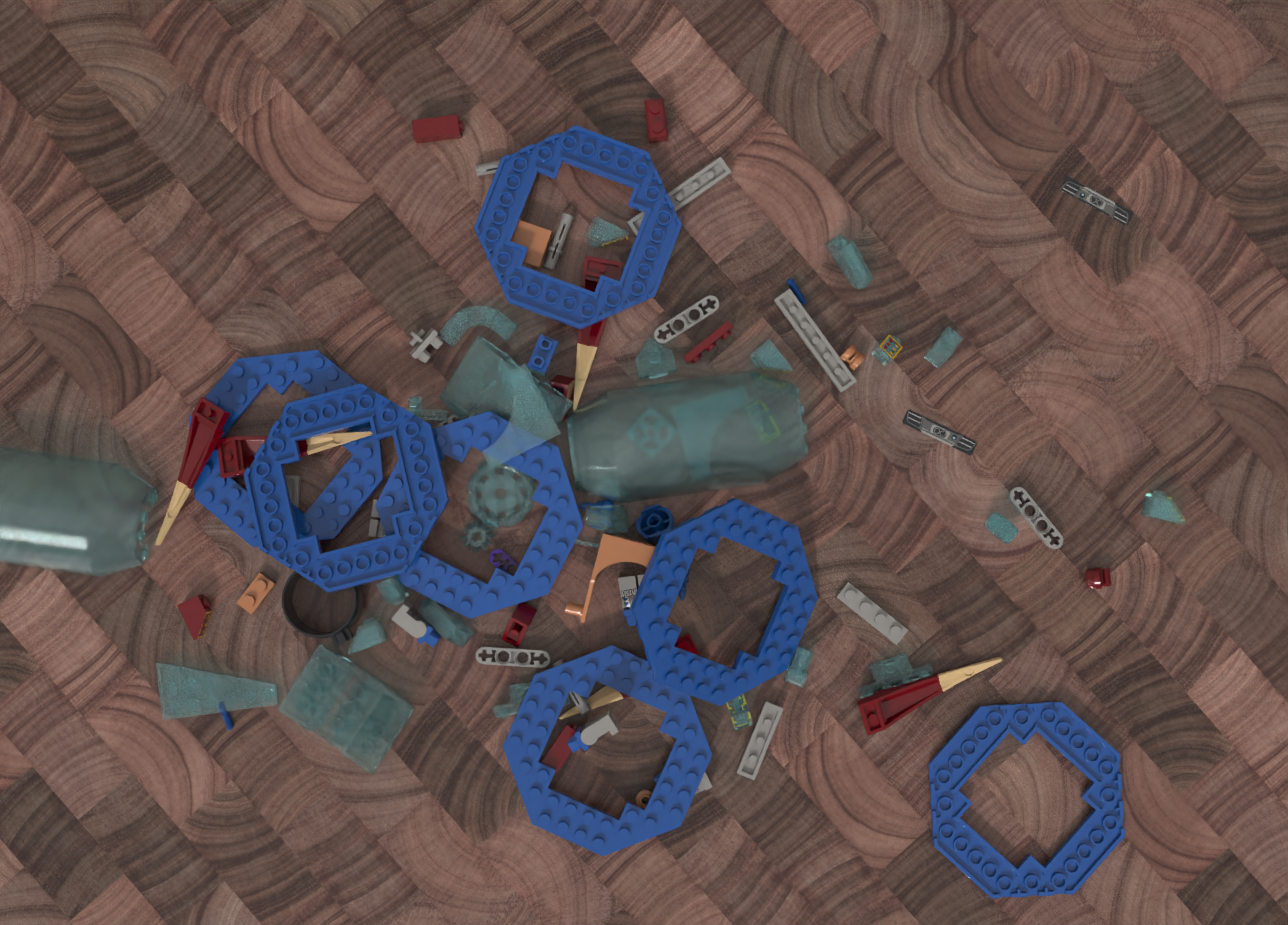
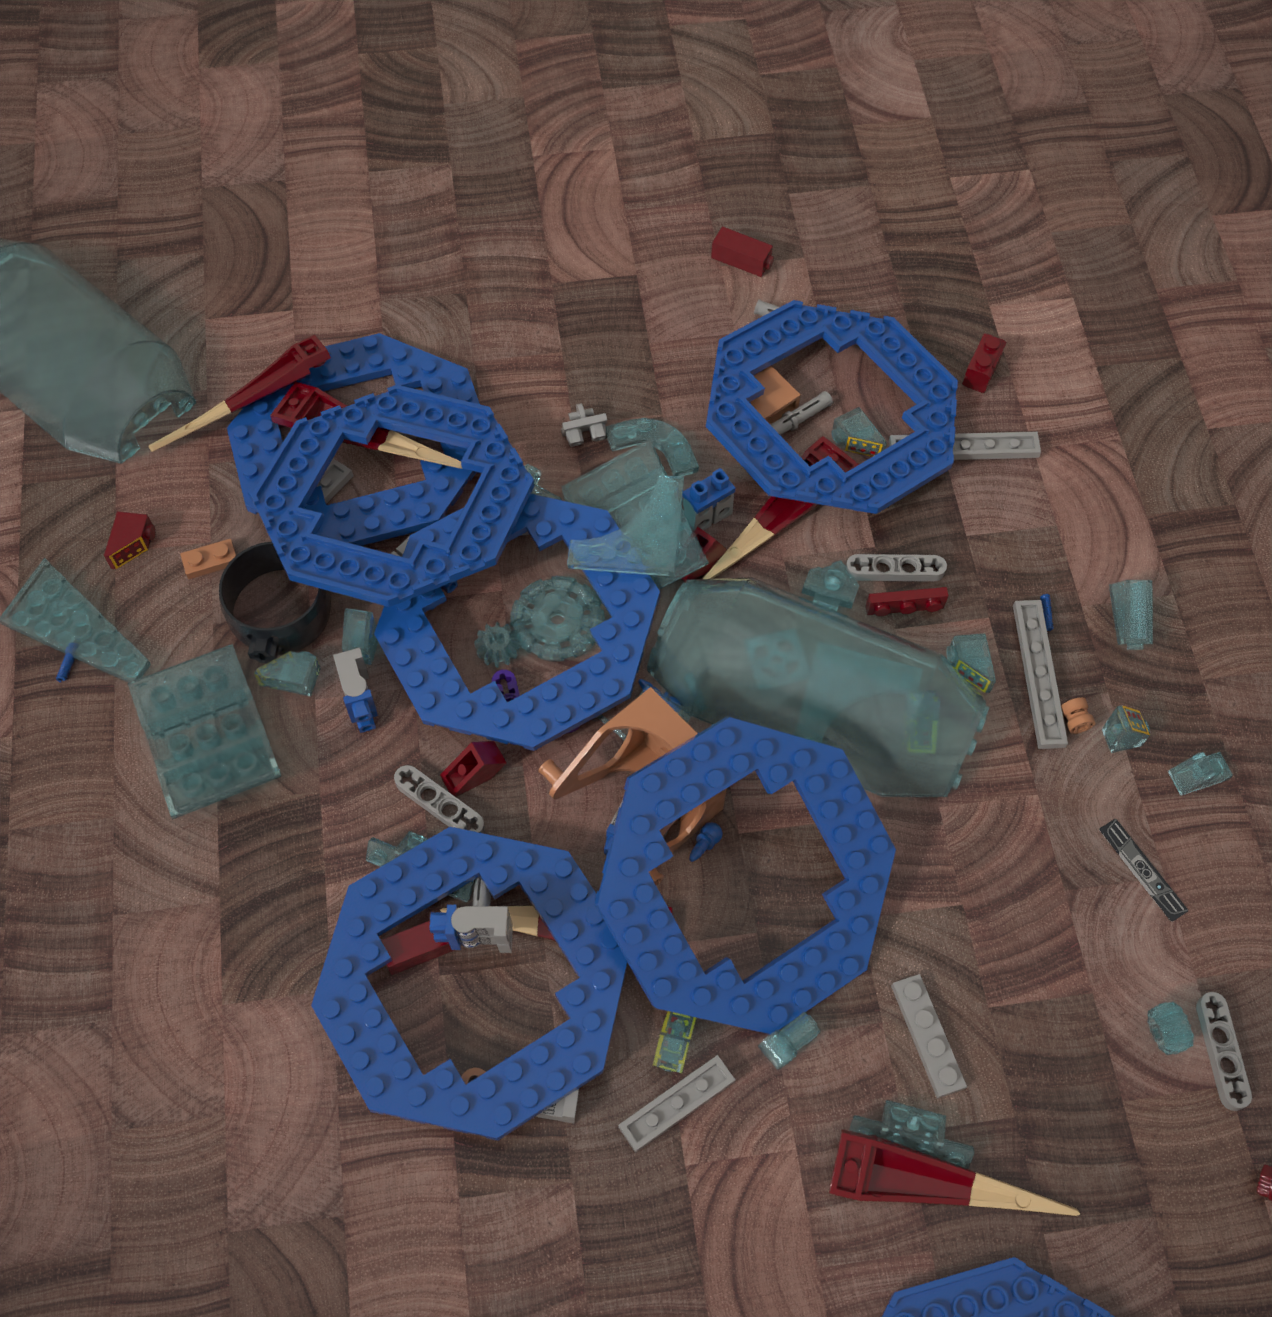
camera: 35 degrees right, 25 degrees down
(445, 622) = (391, 713): clear light blue slope -> none

